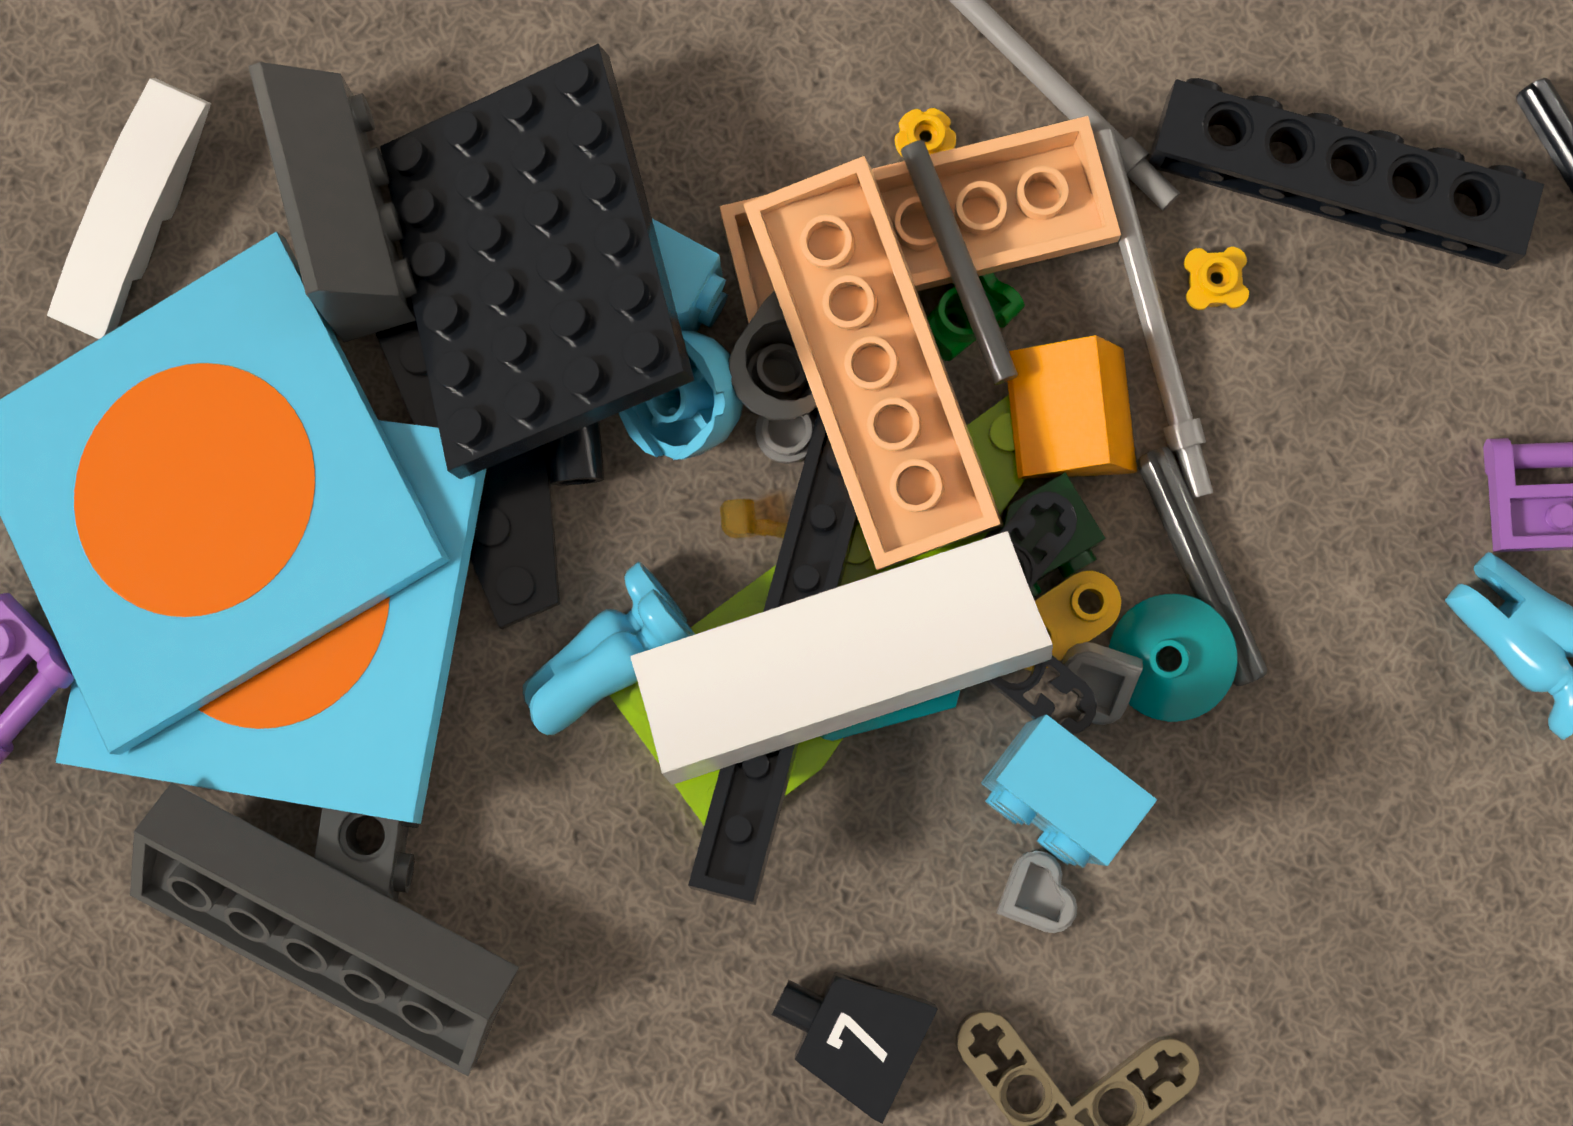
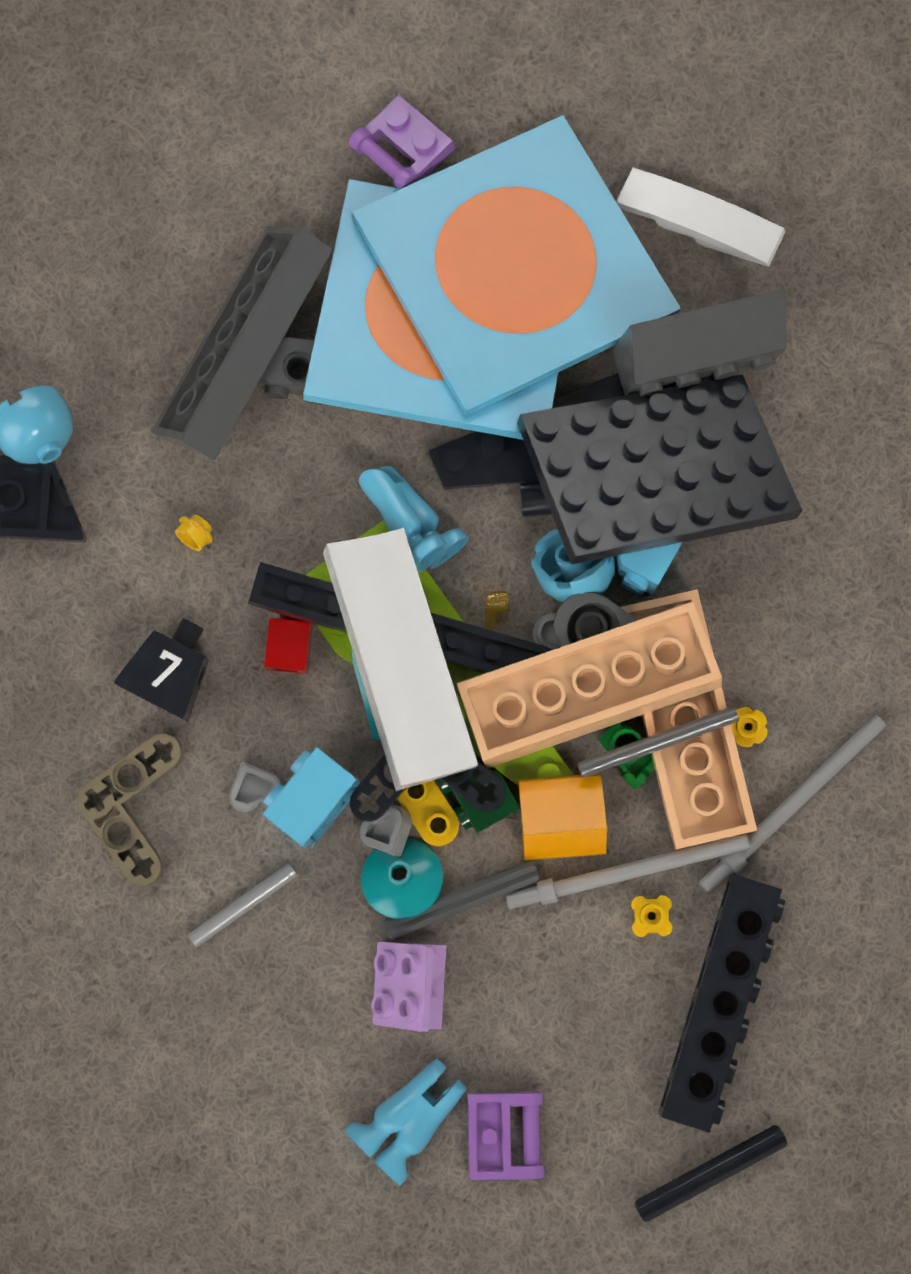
camera: 90 degrees right, 0 degrees up
(631, 1000) = (194, 532): none -> yellow plate
(814, 843) = (288, 645): none -> red brick
(1221, 907) = (242, 904): none -> light grey bar
(1340, 643) = (409, 986): none -> lavender bracket

